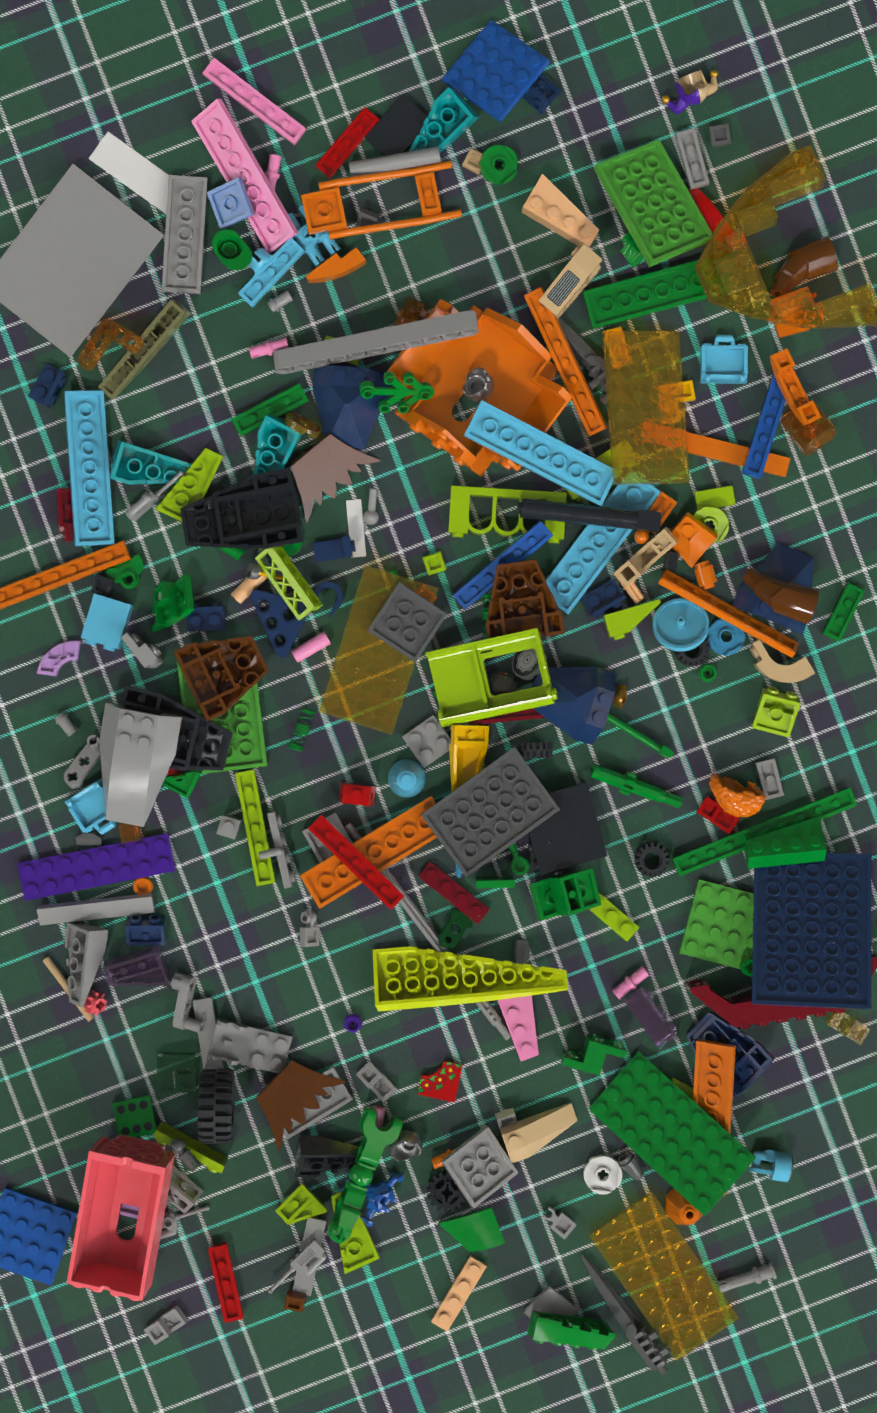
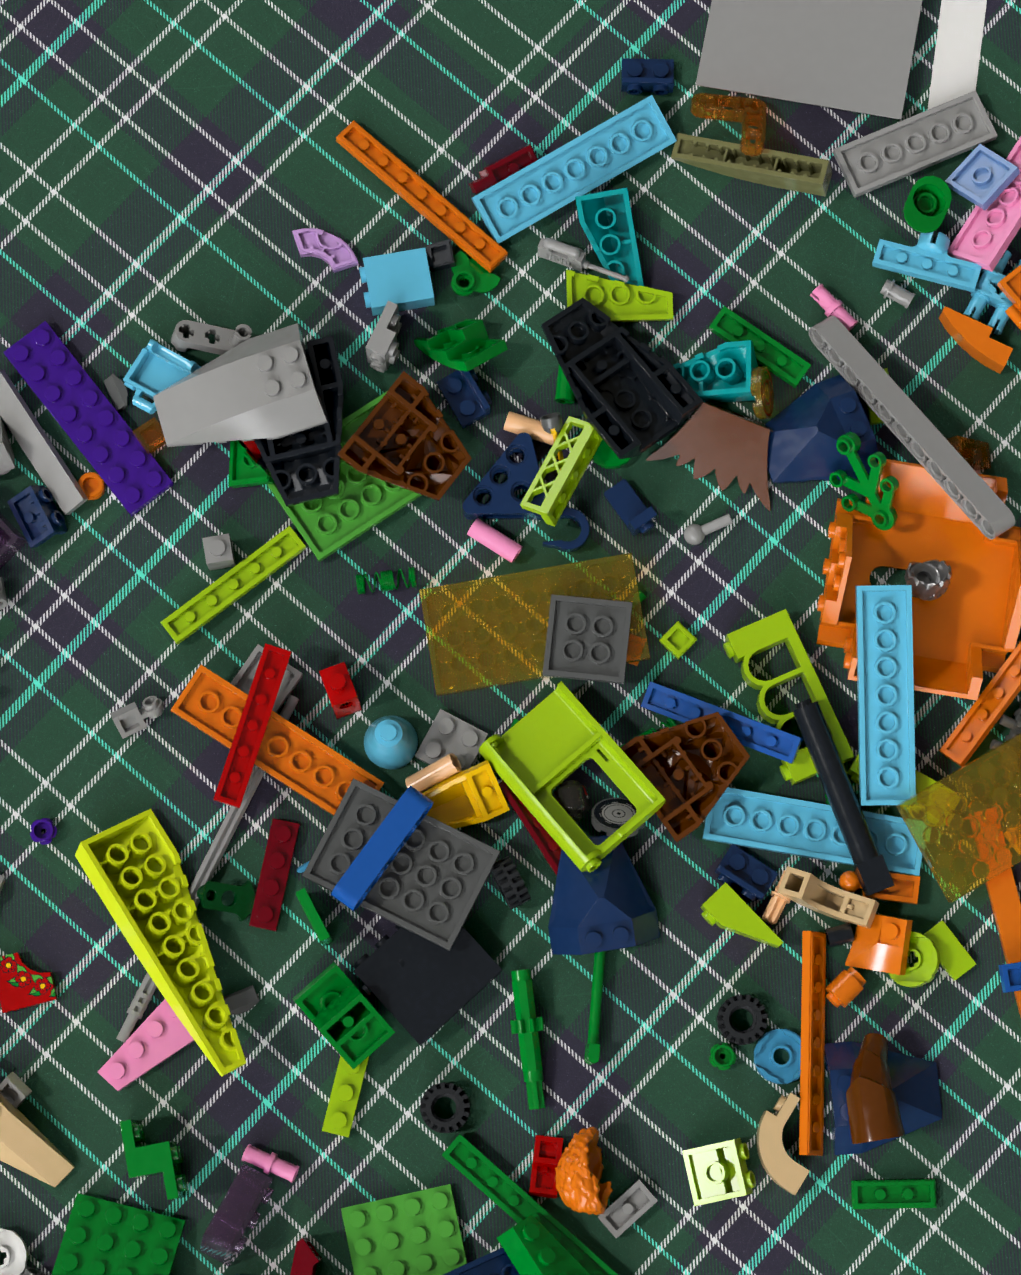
camera: 60 degrees right, 10 degrees down
(65, 724) = (247, 295): light grey pin -> none
(279, 841) = (220, 627): light grey plate -> none
(355, 526) = (672, 522): white sticker -> none
(442, 762) = (434, 773): none -> light nougat piece
(475, 819) = (382, 848): none -> blue beam
(519, 864) = (352, 940): green plate -> none
(620, 696) = (633, 958): pearl gold piece -> none
(680, 625) = (764, 987): medium azure piece -> none

